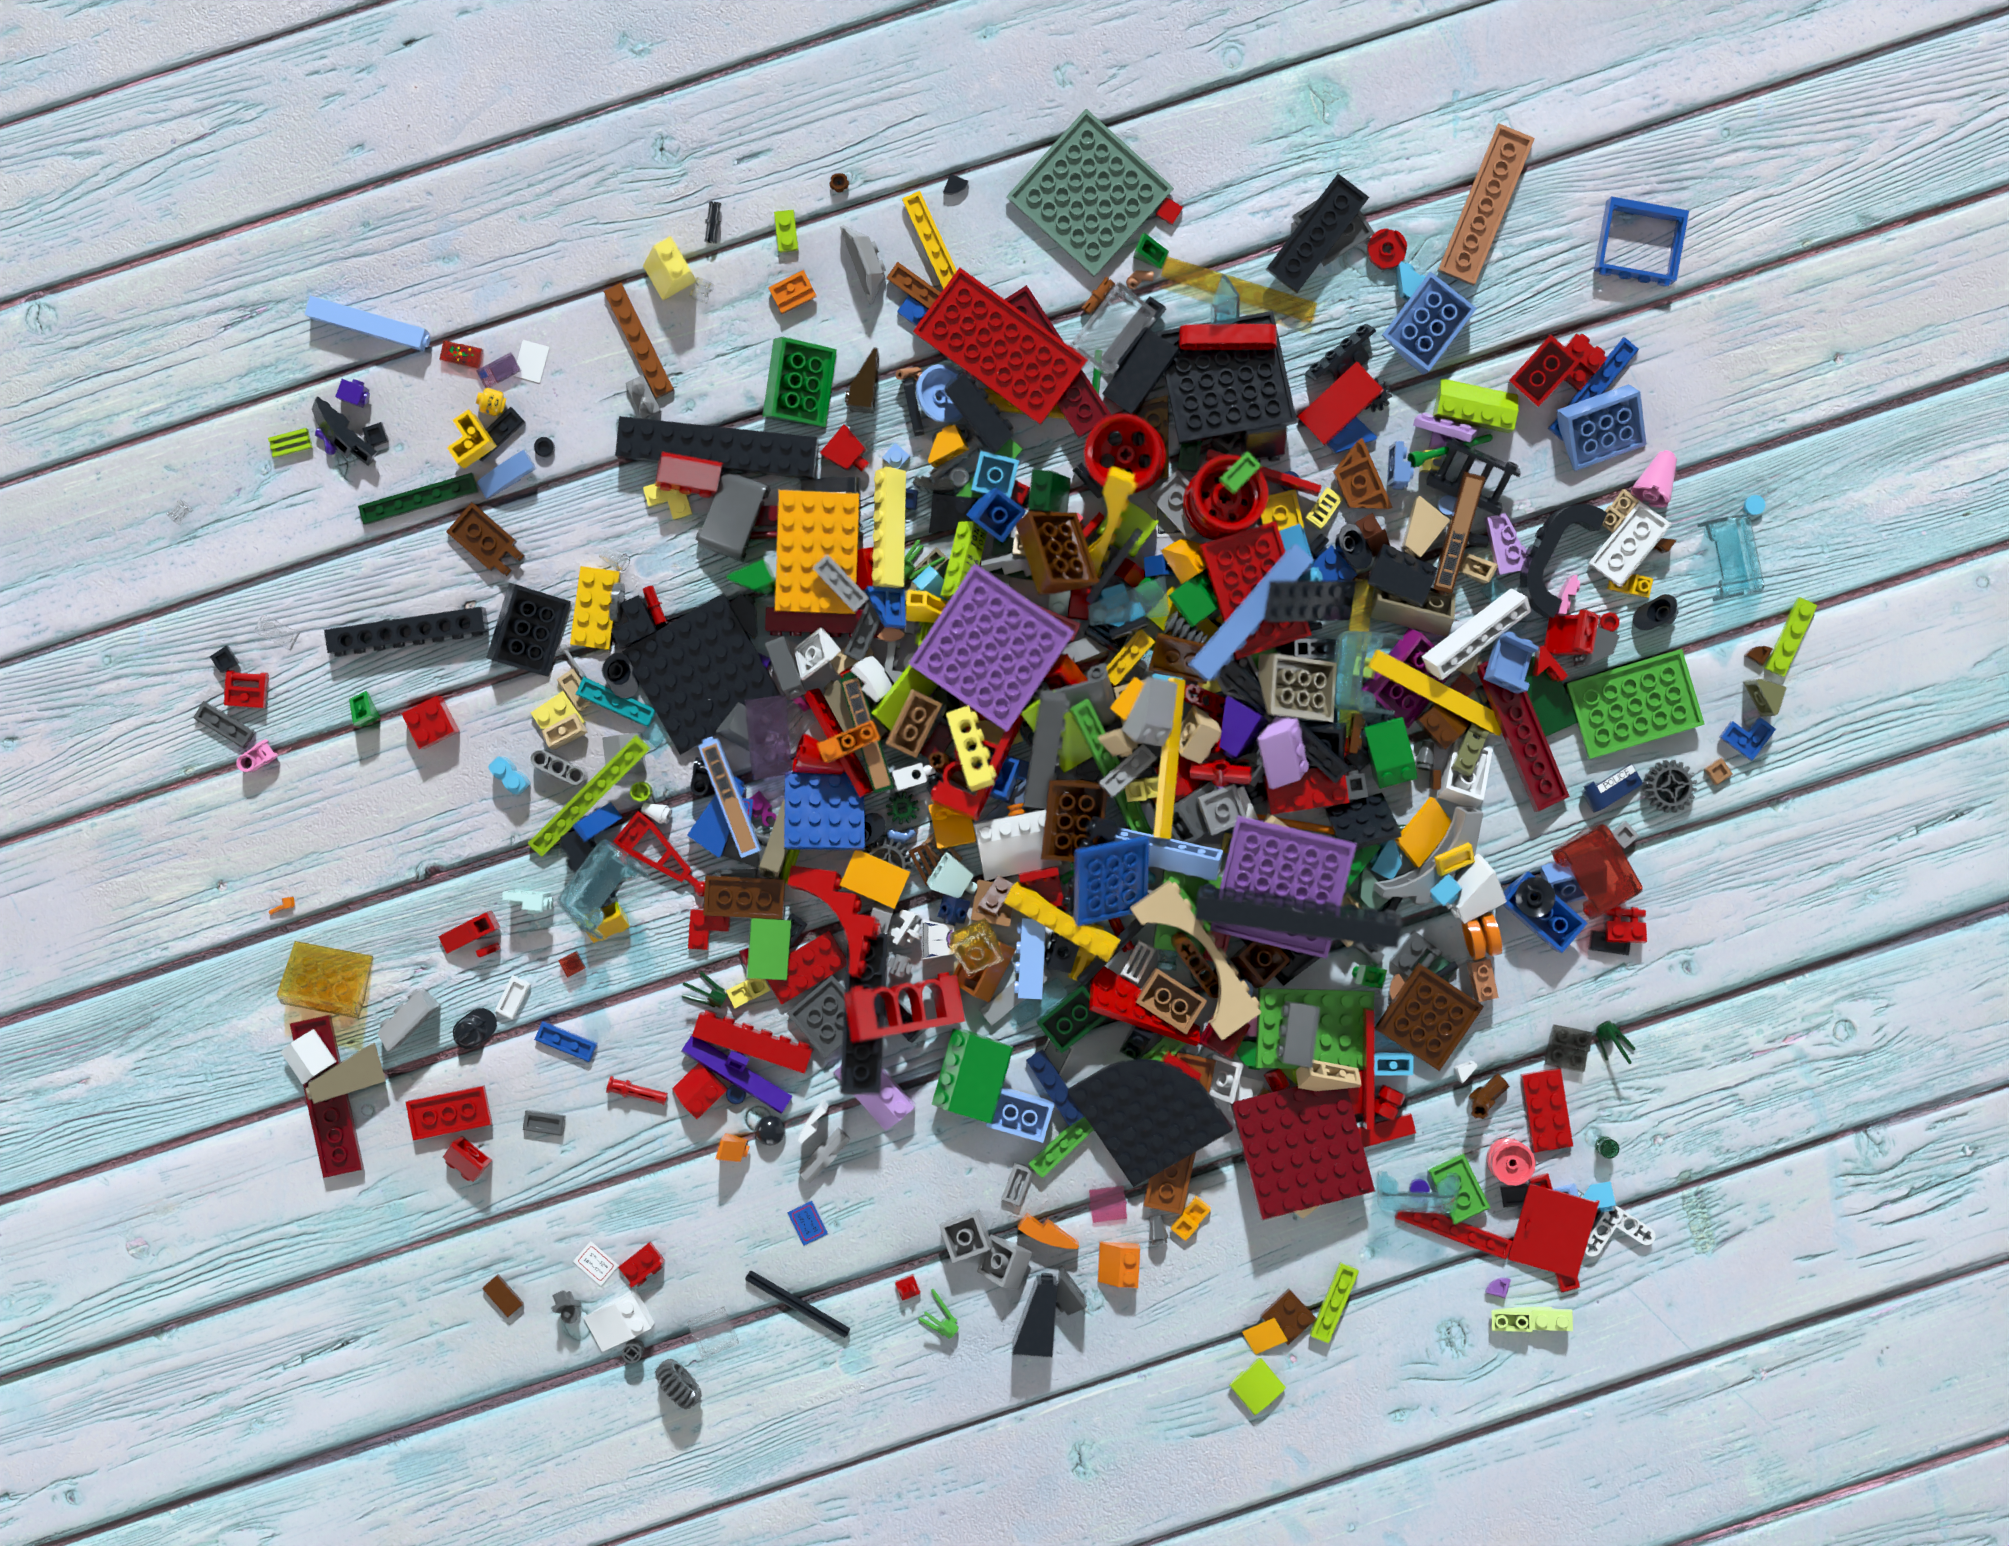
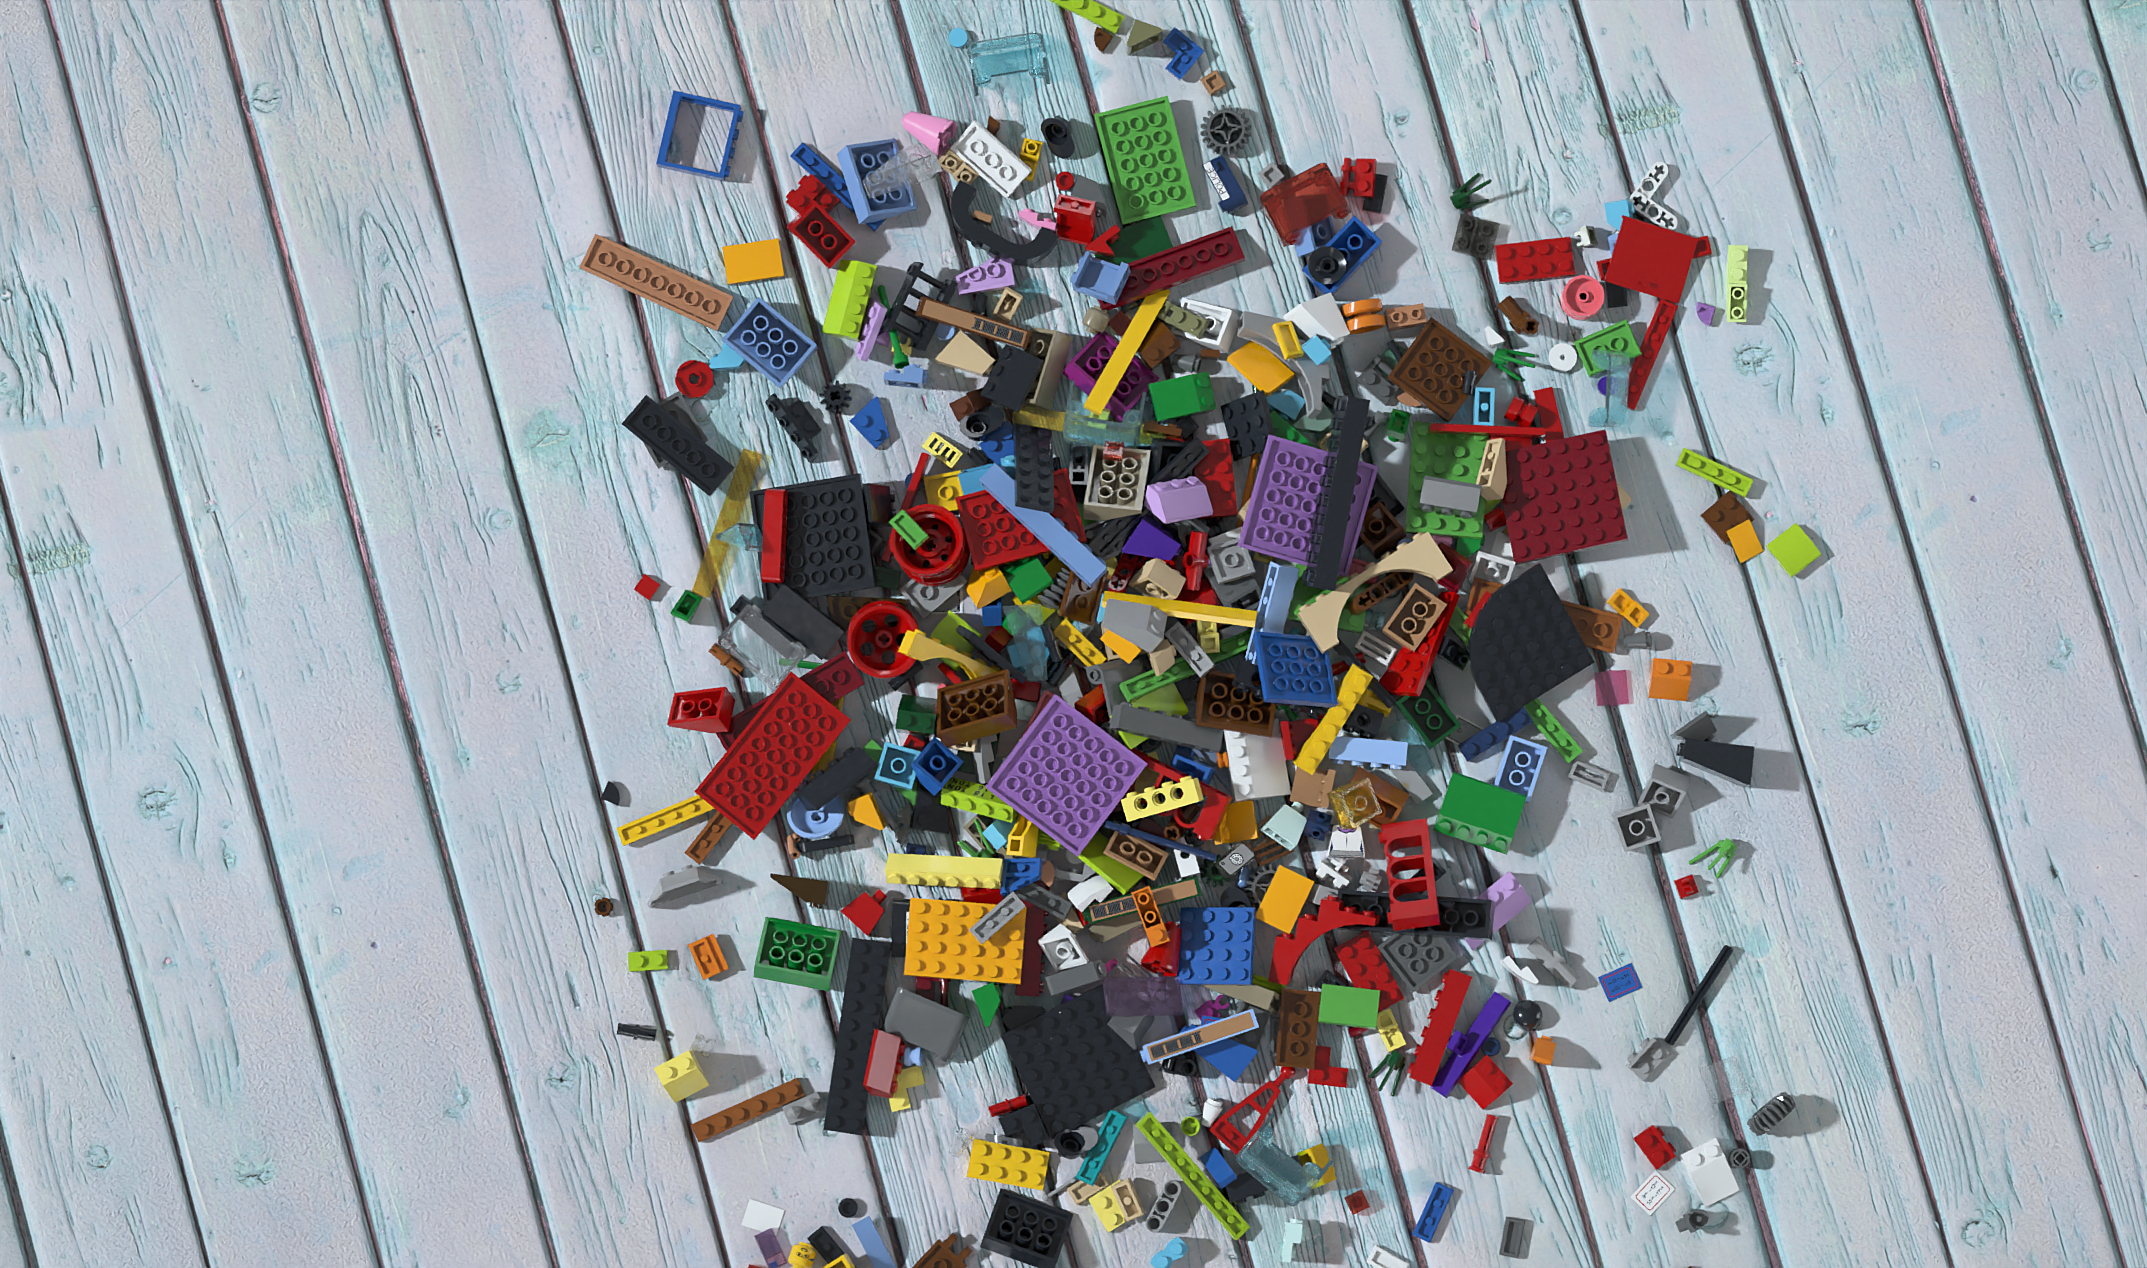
camera: 85 degrees left, 5 degrees down
(699, 506) = (914, 1056): none -> light blue wheel
(731, 1253) = (1647, 1058): none -> light grey bracket
(832, 728) = (1139, 934): red tile -> none
(896, 456) = (873, 862): light blue plate -> none
(912, 310) = (732, 839): blue tile -> none
(913, 826) = (1234, 860): none -> slope
(938, 711) = (1124, 829): none -> dark blue bar
(959, 476) = (895, 802): white tile -> none
(995, 896) = (1306, 783): plate -> none
(1044, 272) = (702, 710): none -> red slope
(1047, 1232) = (1636, 747): orange slope -> none
(1090, 192) = (626, 663): sand green plate -> none
(1137, 277) = (709, 620): nougat arm -> none
(1331, 683) = (1113, 450): none -> clear red tile
(1341, 403) = (842, 430): red tile -> none
(1360, 480) = (917, 414): dark orange wing -> none
(1361, 789) = (1217, 426): dark grey brick -> none
(1417, 1048) = (1469, 382): none -> black pin
(1445, 1081) = (1502, 358): none -> green plant
(1447, 1142) = (1562, 357): none -> white piece
(1476, 634) = (1071, 309): white brick -> none
(1511, 304) = (753, 261): none -> light orange tile
(1567, 538) = (982, 217): none -> medium nougat tile
(1575, 1164) = (1588, 236): none -> tile
(1610, 1149) = (1572, 200): clear green wheel -> none
(1615, 454) = (906, 168): none -> clear wedge

